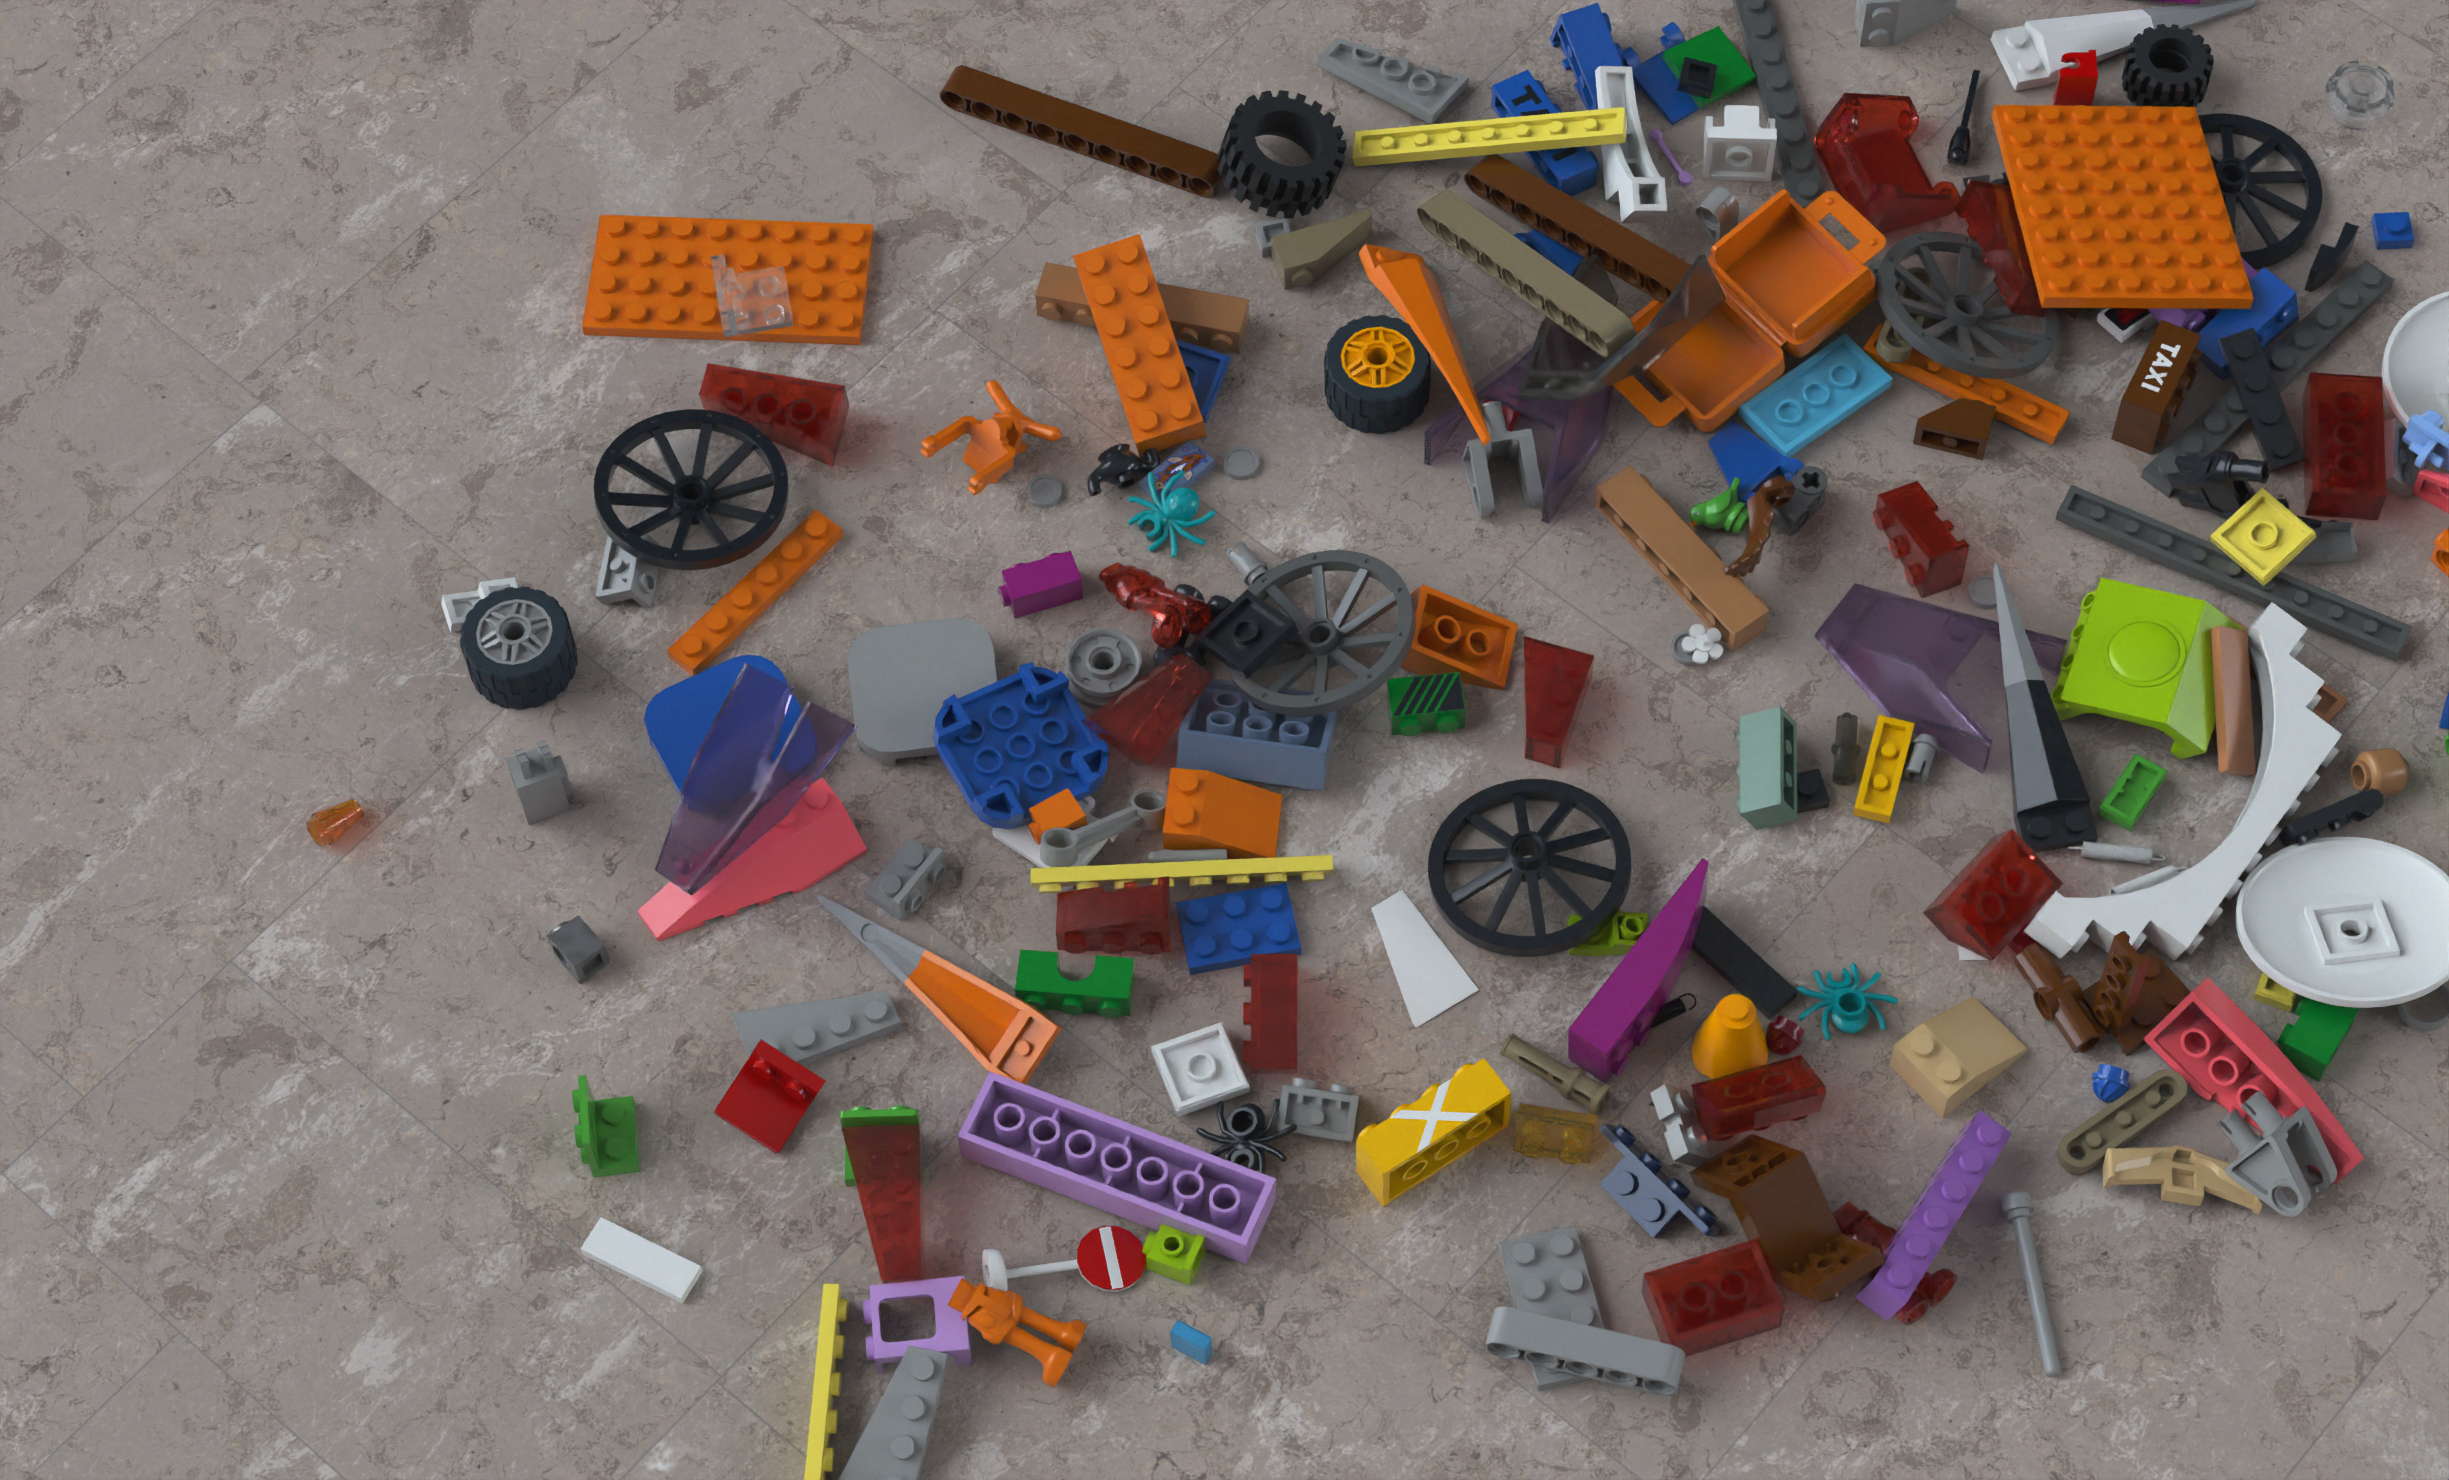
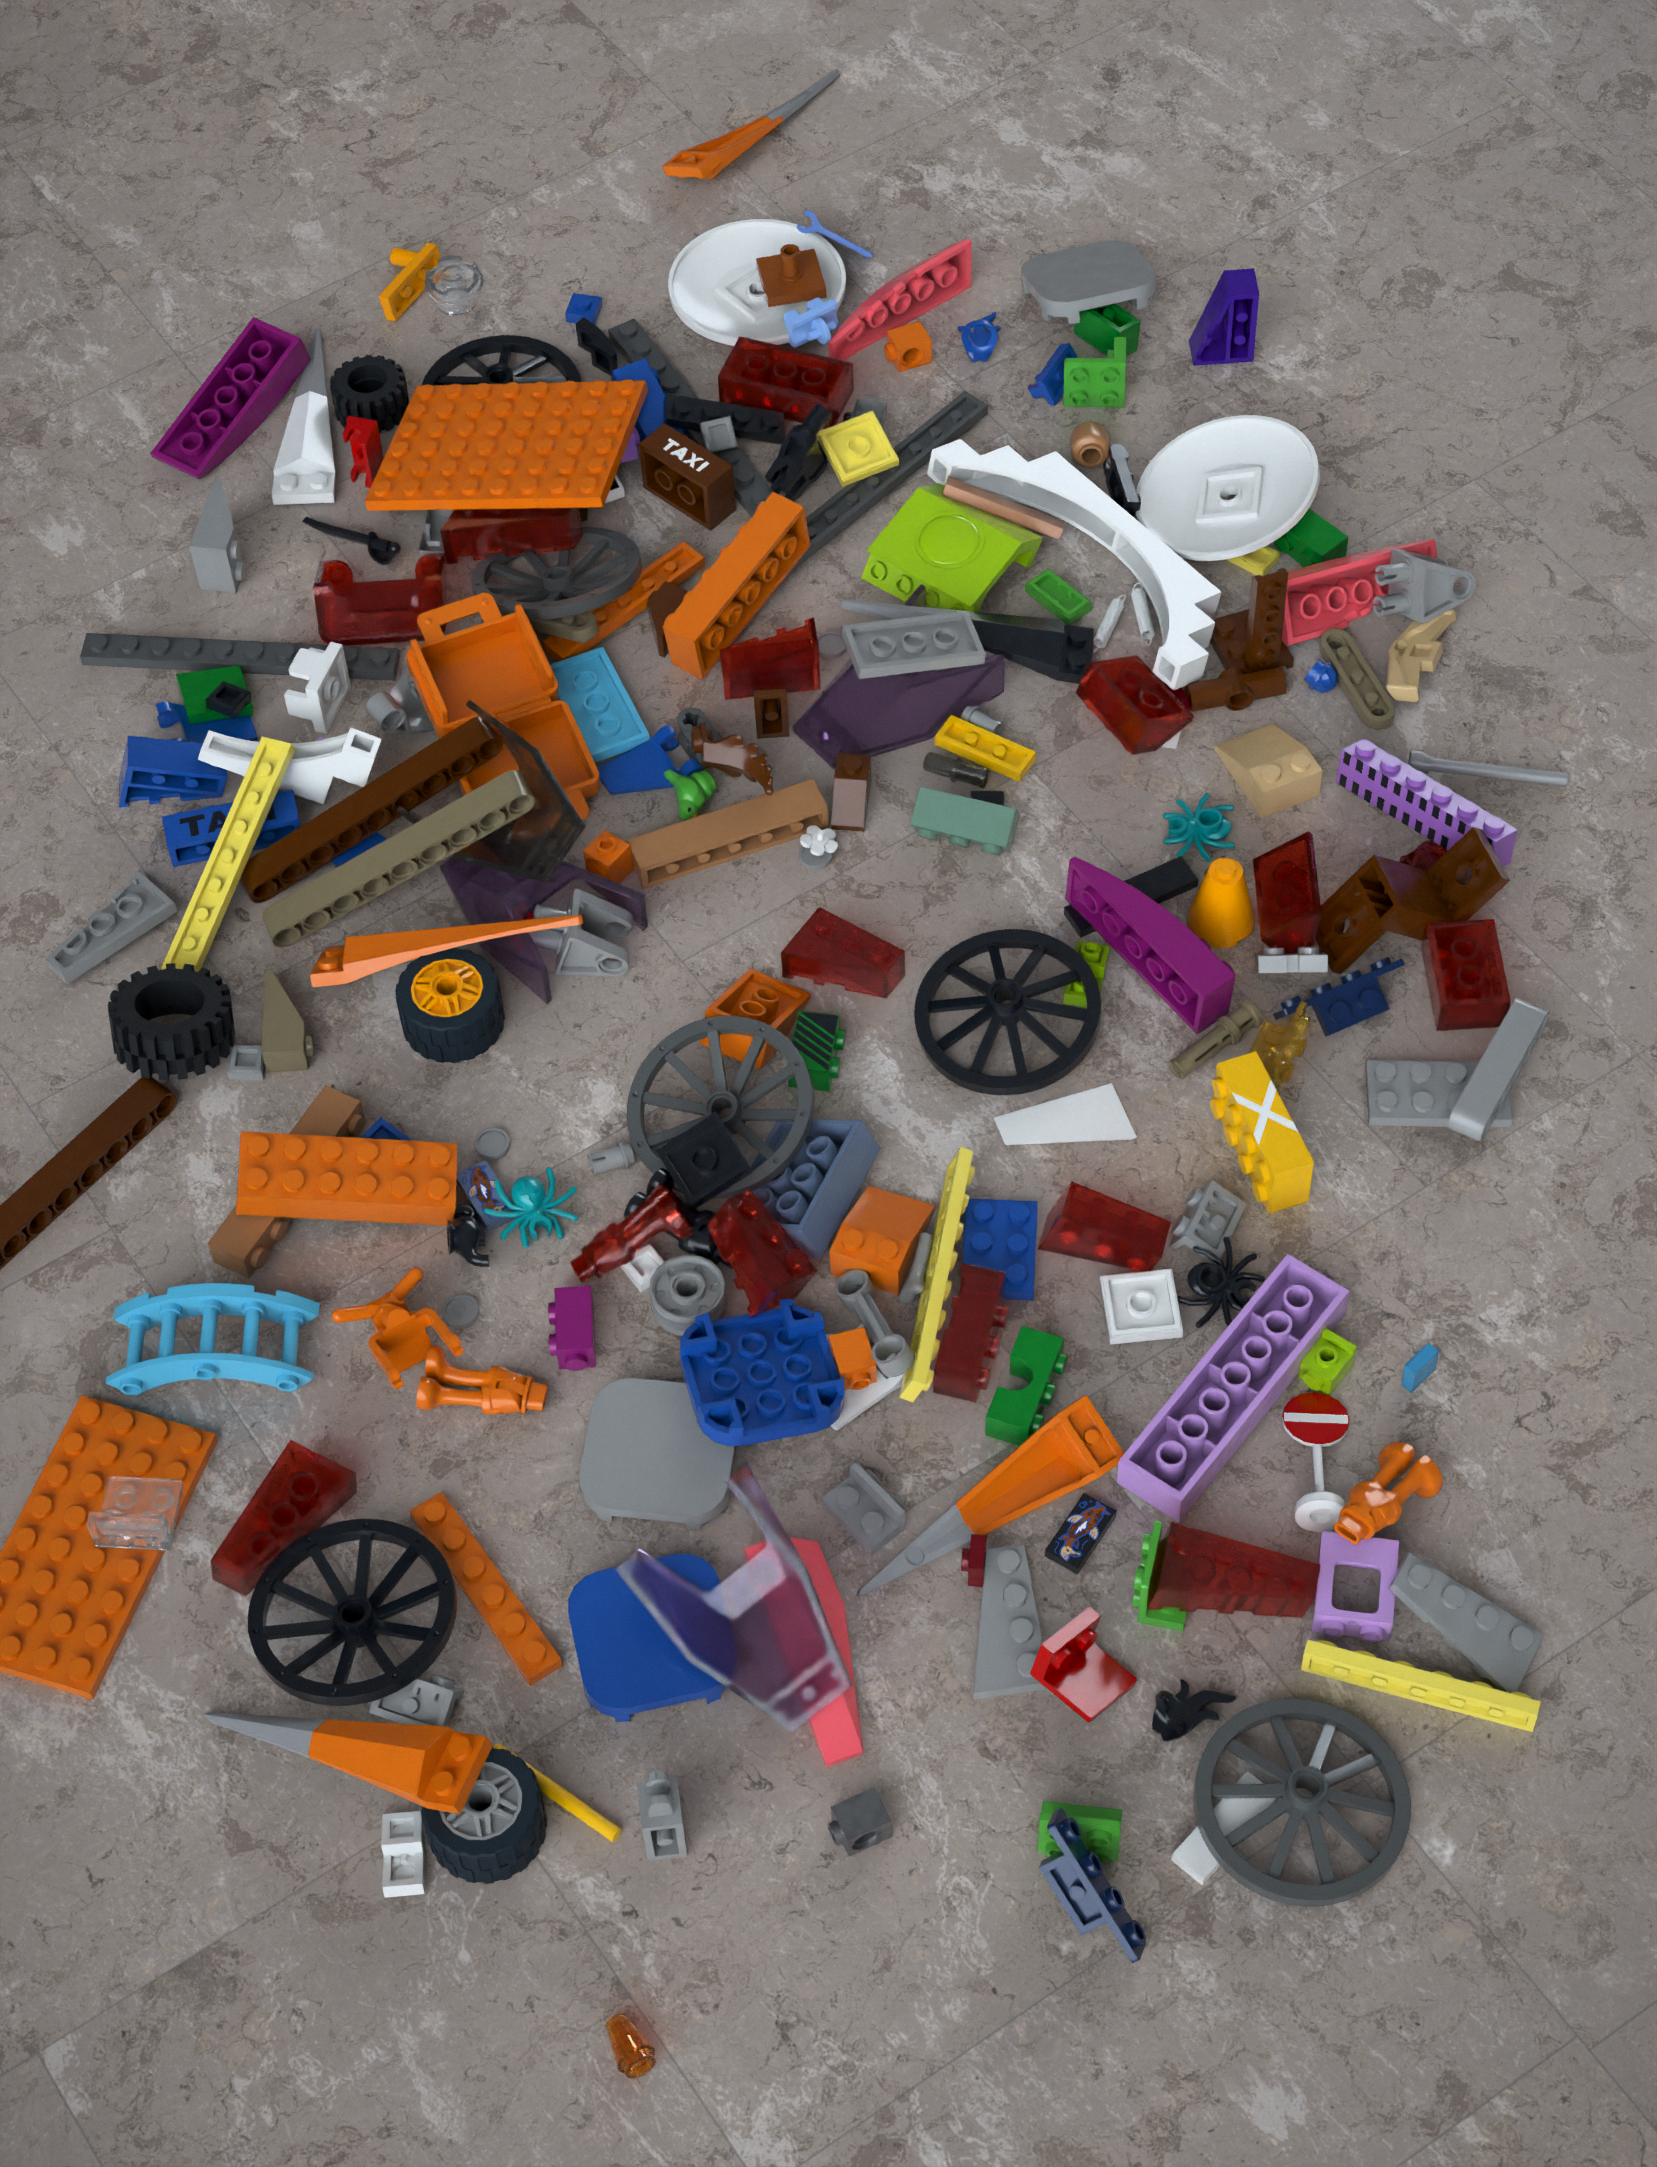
camera: 75 degrees left, 5 degrees down
(533, 1144) = (1084, 1890): none -> dark blue bracket
(540, 564) = (410, 1760): none -> orange plate
(570, 693) = (573, 1804): none -> yellow bar
(674, 1296) = (1299, 1806): none -> dark grey wheel
(751, 1198) = (1181, 1715): none -> black piece
(870, 980) = (974, 1560): none -> dark red plate
(927, 1070) = (1080, 1533): none -> tile
(959, 545) = (500, 1388): none -> orange piece
(973, 281) = (210, 1301): none -> medium azure fence
(1134, 624) = (643, 1266): none -> white tile
(1606, 457) = (609, 857): none -> orange brick
(1775, 655) = (851, 792): none -> slope
(1859, 550) = (771, 712): none -> reddish brown slope
(1959, 646) = (913, 644): none -> light grey plate
(2006, 469) = (737, 585): none -> orange brick
(2229, 399) = (718, 434): none -> light grey tile
(2331, 52) = (410, 281): none -> light orange piece

